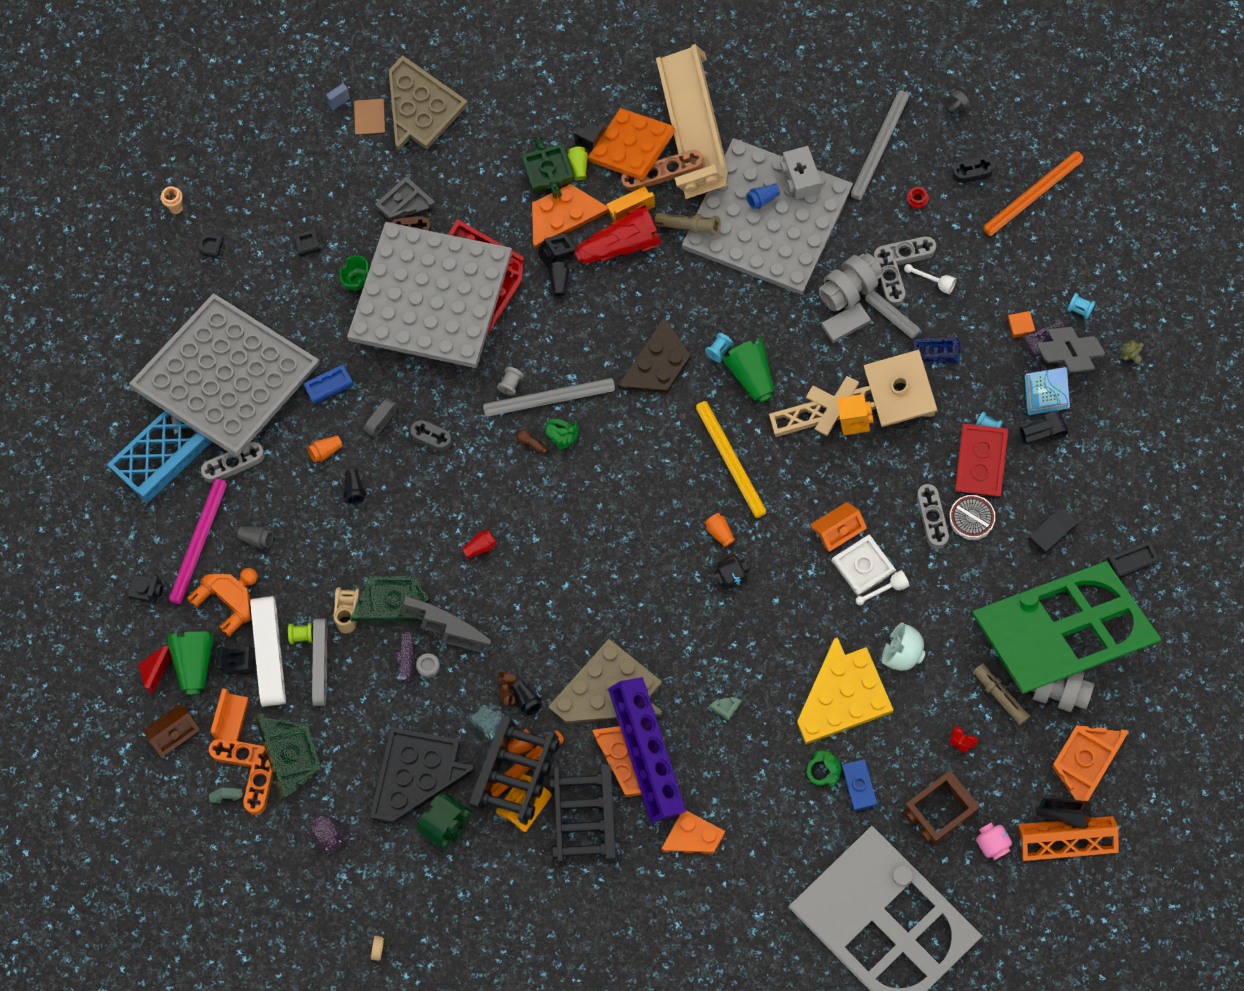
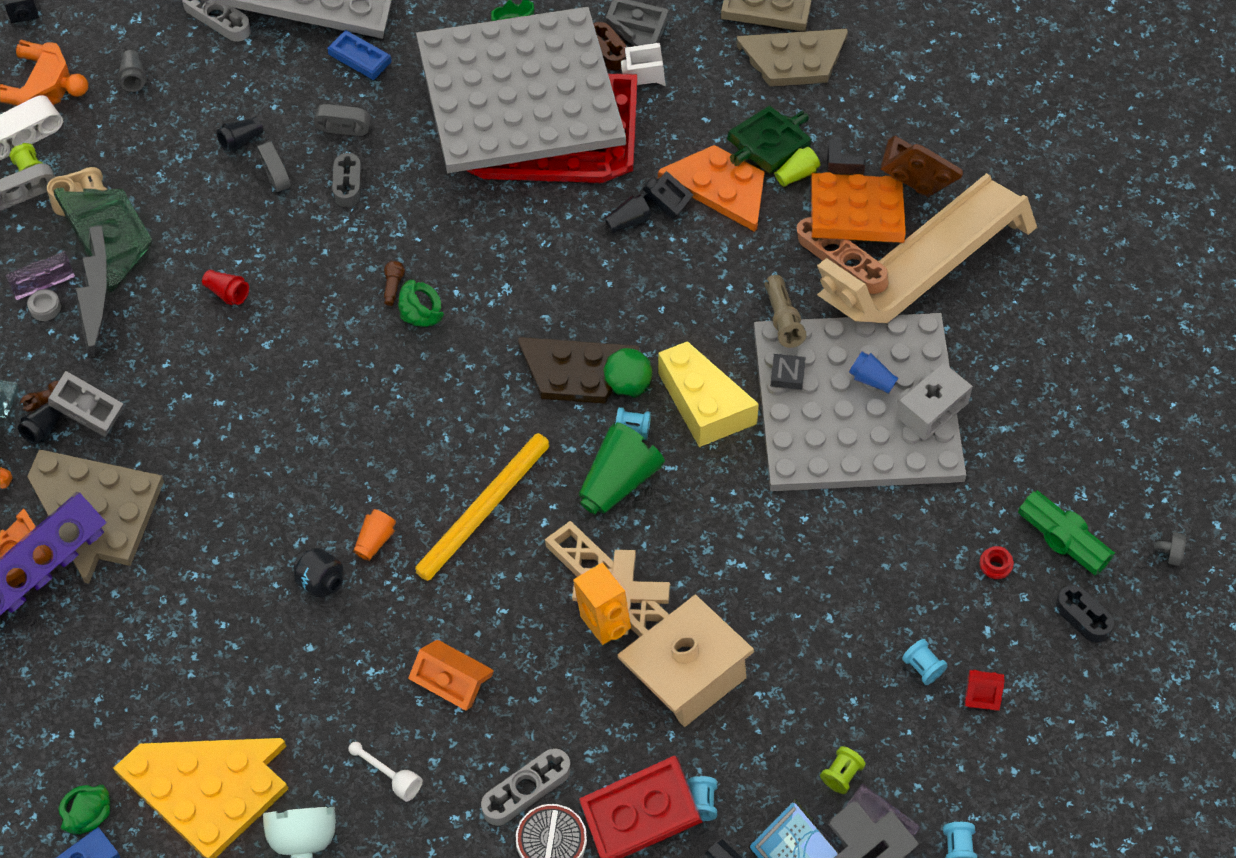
camera: 60 degrees right, 10 degrees down
(197, 541) = (102, 24): dark pink axle -> none
(323, 448) = (273, 84): orange cone -> none
(396, 476) = (273, 166): none -> dark grey beam
(444, 213) = (645, 62): none -> white window
(485, 121) = (794, 56): none -> dark tan wing
(510, 381) = (459, 224): light grey bush -> none
(536, 661) = (85, 404): none -> light grey brick
(548, 397) = (463, 275): light grey axle -> none
(623, 237) = (724, 252): red cone -> none
(624, 95) = (918, 167): none -> reddish brown bracket
(624, 204) = (775, 246): light orange panel -> none
(682, 332) = (628, 372): none -> green hair
(721, 297) = (705, 395): none -> light yellow wedge
(725, 707) = (126, 651): sand green tile -> none
(733, 242) = (788, 371): none -> black tile
(843, 288) = (825, 533): light grey piece -> none
(846, 323) = (757, 556): light grey tile -> none
(863, 565) = (410, 731): white tile -> none
(879, 145) = (1046, 484): light grey axle -> none
(892, 314) = (803, 607): light grey axle -> none
(894, 259) = (887, 575): light grey beam -> none
(918, 151) = (1066, 532): none -> green piece
(945, 283) = (887, 652): white hinge -> none
(946, 342) = (791, 704): clear blue slope -> none
(962, 267) = (924, 661): none -> medium azure bush
(996, 245) = (984, 690): none -> red tile
(1007, 343) = (845, 758): none -> lime bush
(1021, 324) = (885, 777): orange tile -> none
(1033, 193) = (1101, 707): orange axle -> none

